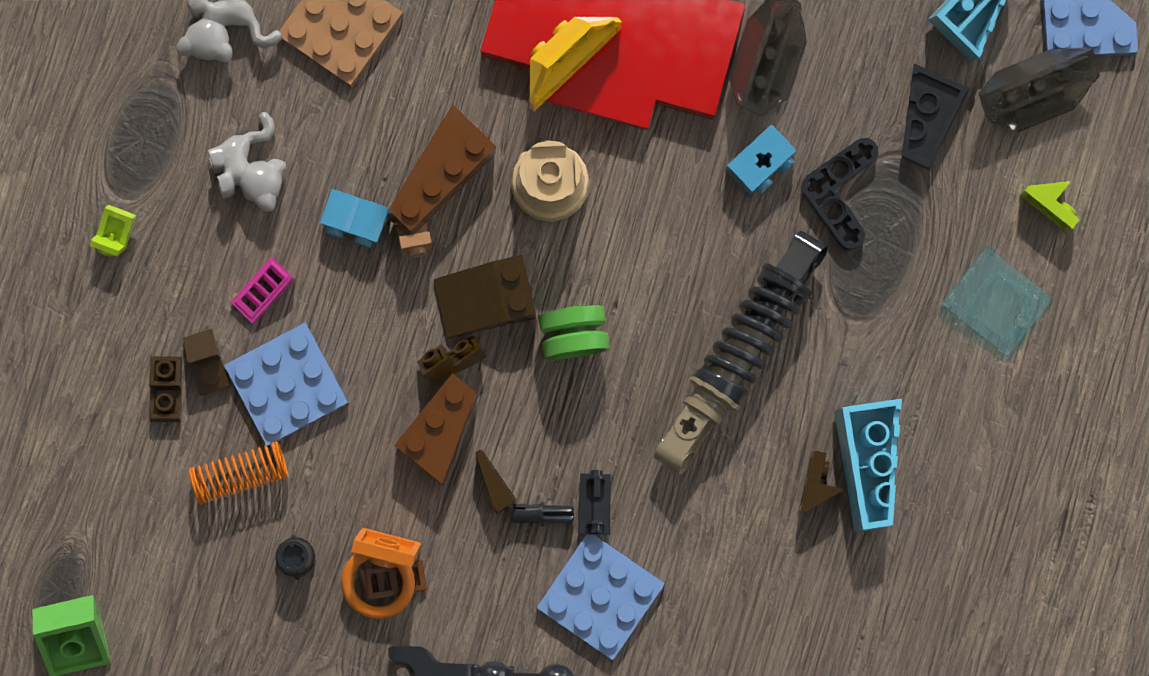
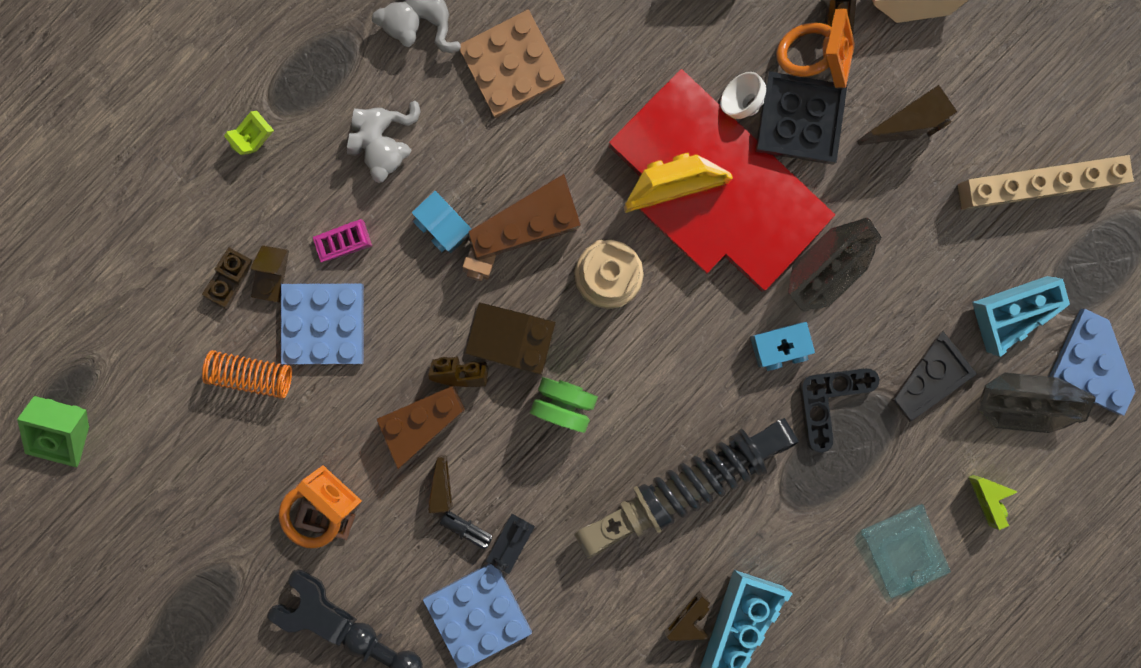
camera: 25 degrees right, 5 degrees up
(295, 557) = (258, 461): black piece -> none

